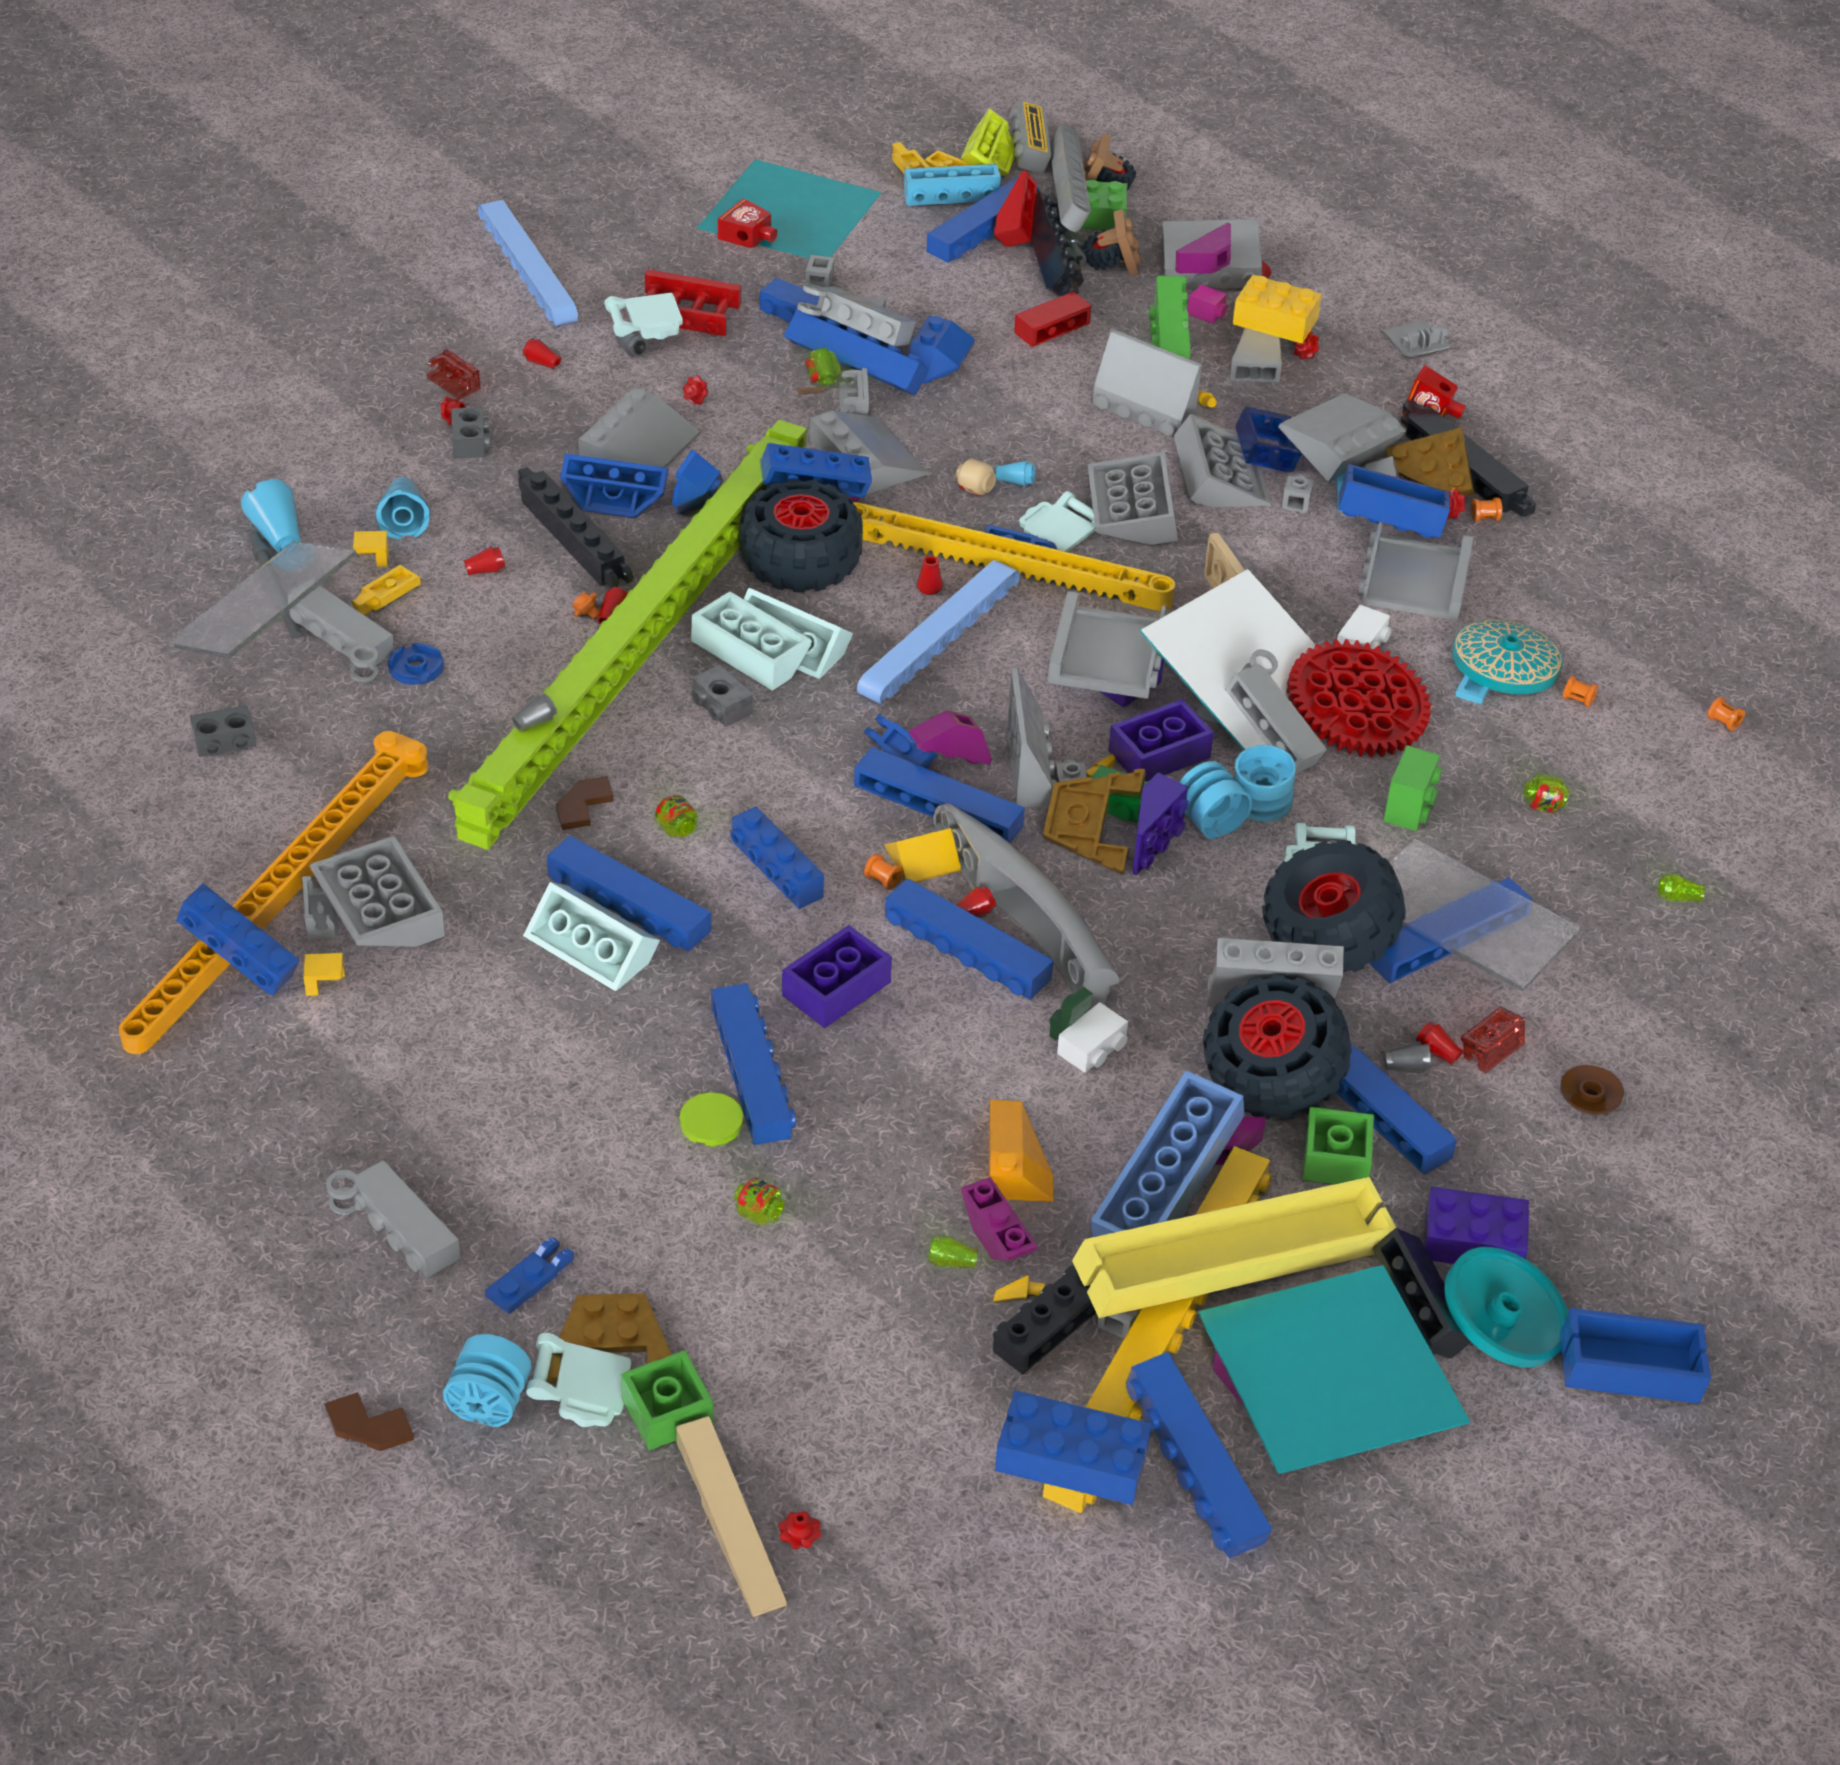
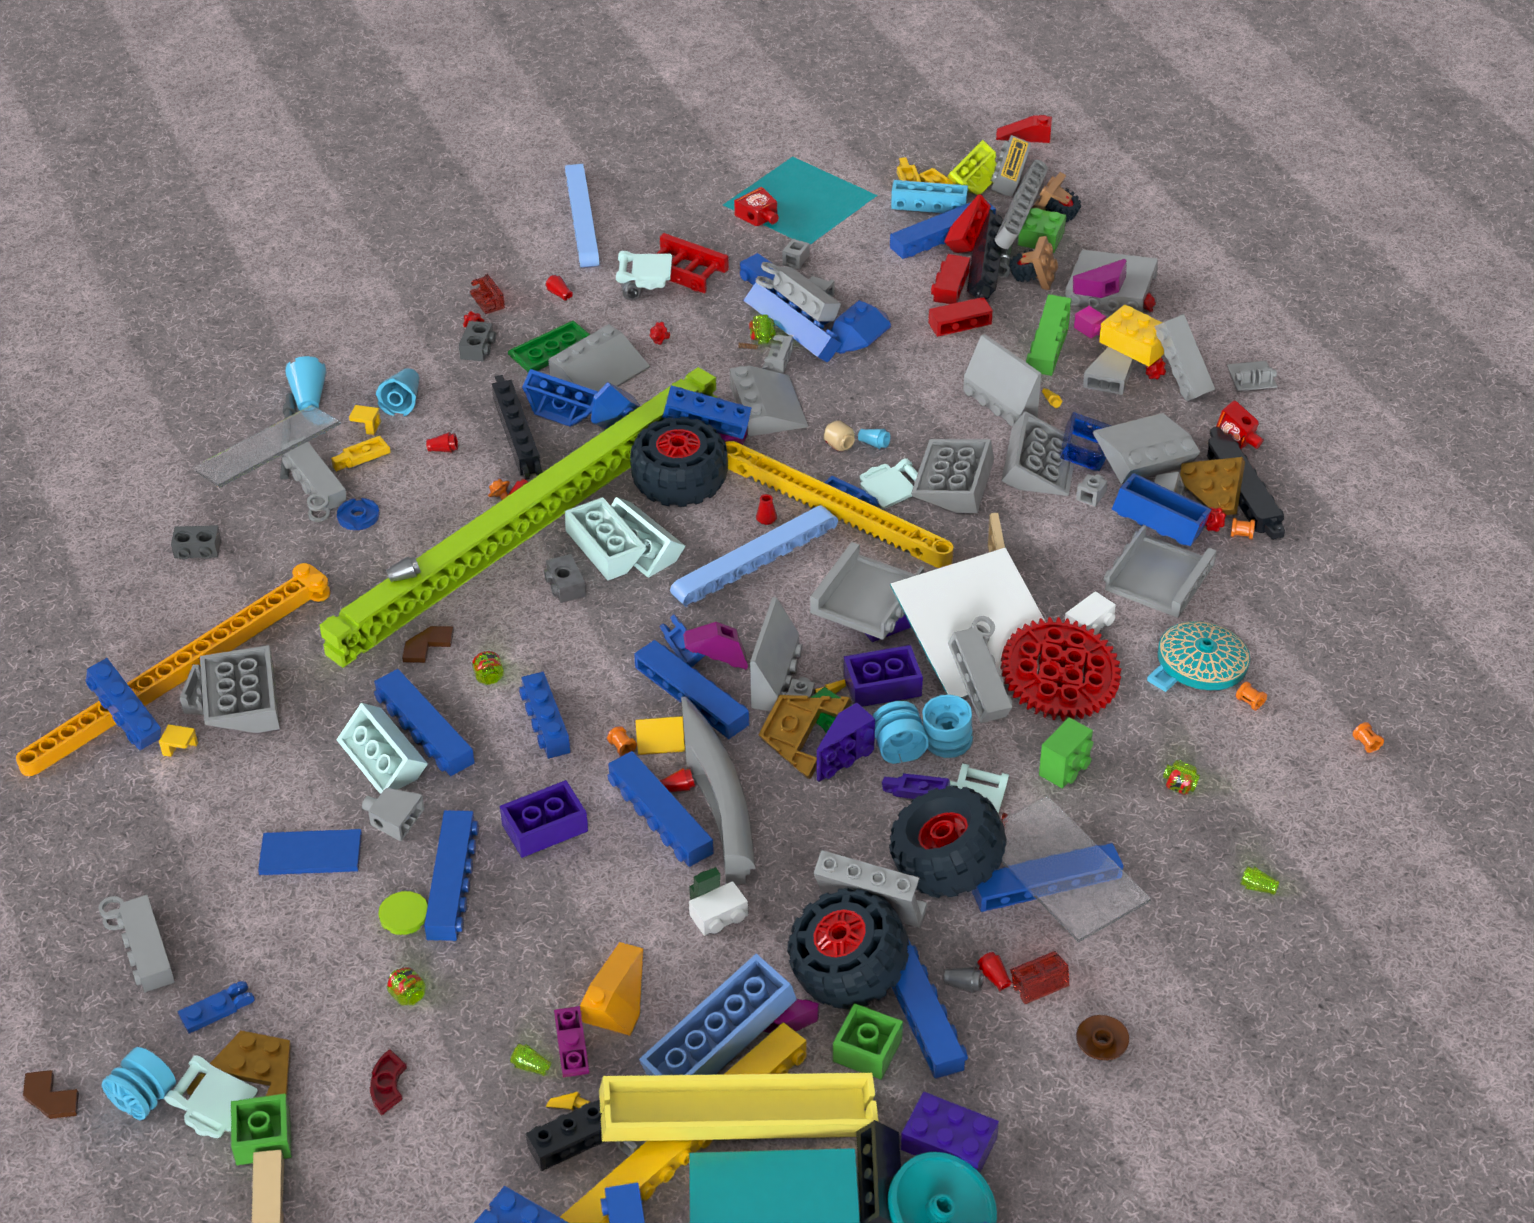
camera: 20 degrees right, 0 degrees up
(558, 1072) = (310, 852): none -> blue tile
(562, 427) = (537, 351): none -> green tile
(643, 1004) = (394, 811): none -> light grey torso
(785, 1316) = (384, 1081): none -> dark red tile
(1020, 277) = (951, 279): none -> red brick
(1036, 88) = (1029, 129): none -> red slope
(1254, 858) = (913, 785): none -> dark purple hinge
(1344, 326) = (1184, 357): none -> light grey brick

